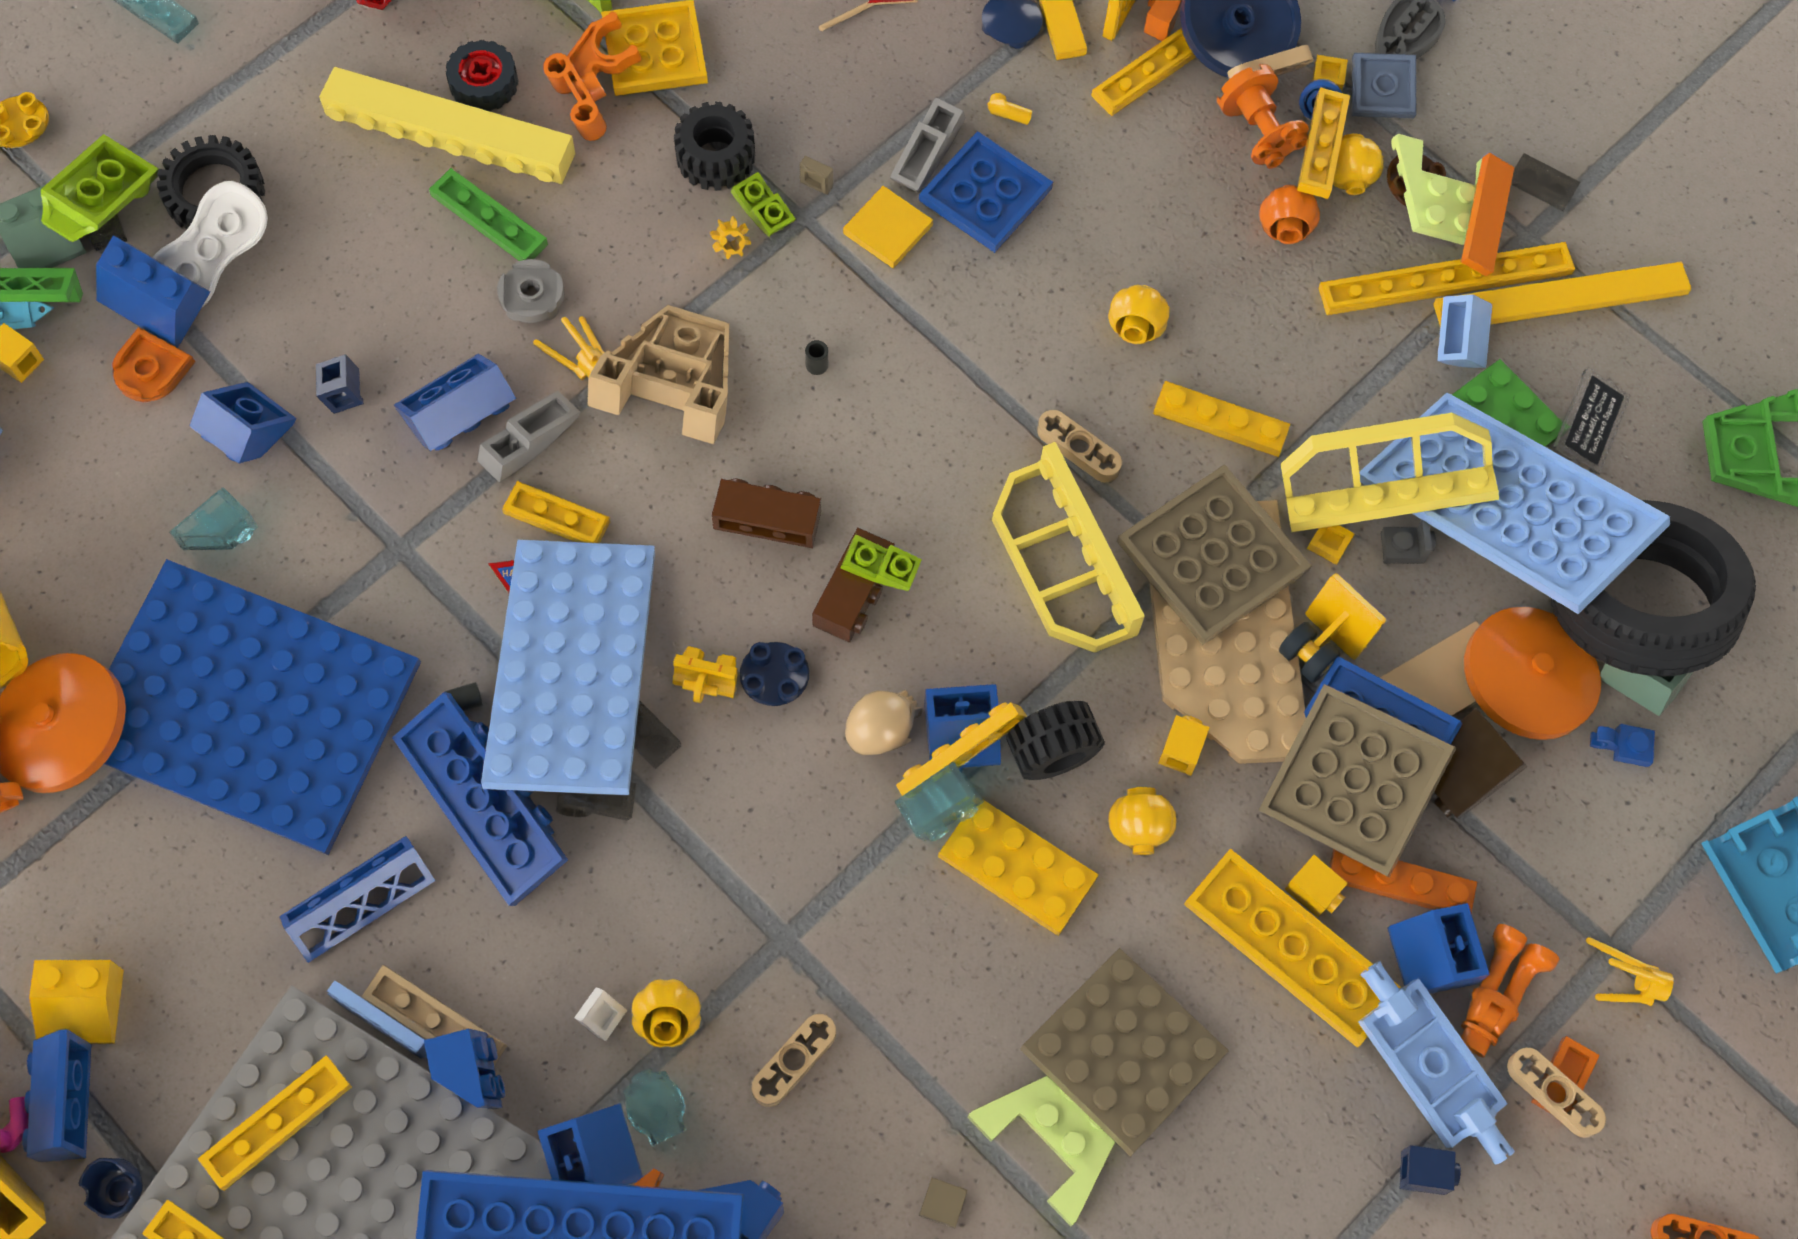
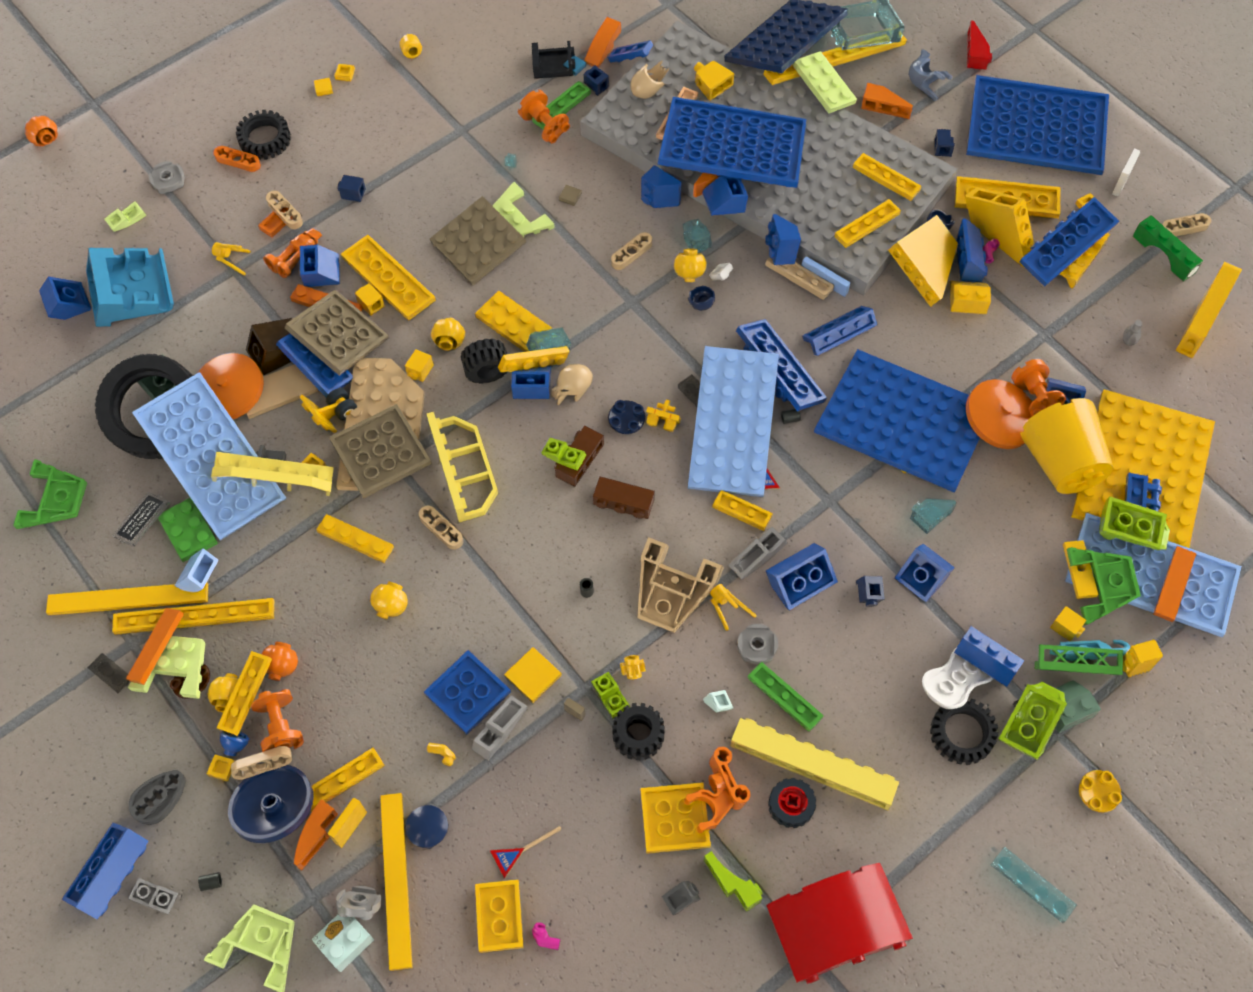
camera: 170 degrees left, 5 degrees down
(149, 367) = (985, 614): orange tile -> none
(154, 1073) = (927, 258): none -> yellow slope
(593, 207) = (718, 701): none -> light aqua slope
(640, 941) = (701, 298): none -> dark blue hair
(1383, 85) = (188, 751): sand blue tile -> none
(1434, 1064) = (336, 222): light blue plate -> none
(1628, 742) = (189, 353): blue plate -> none

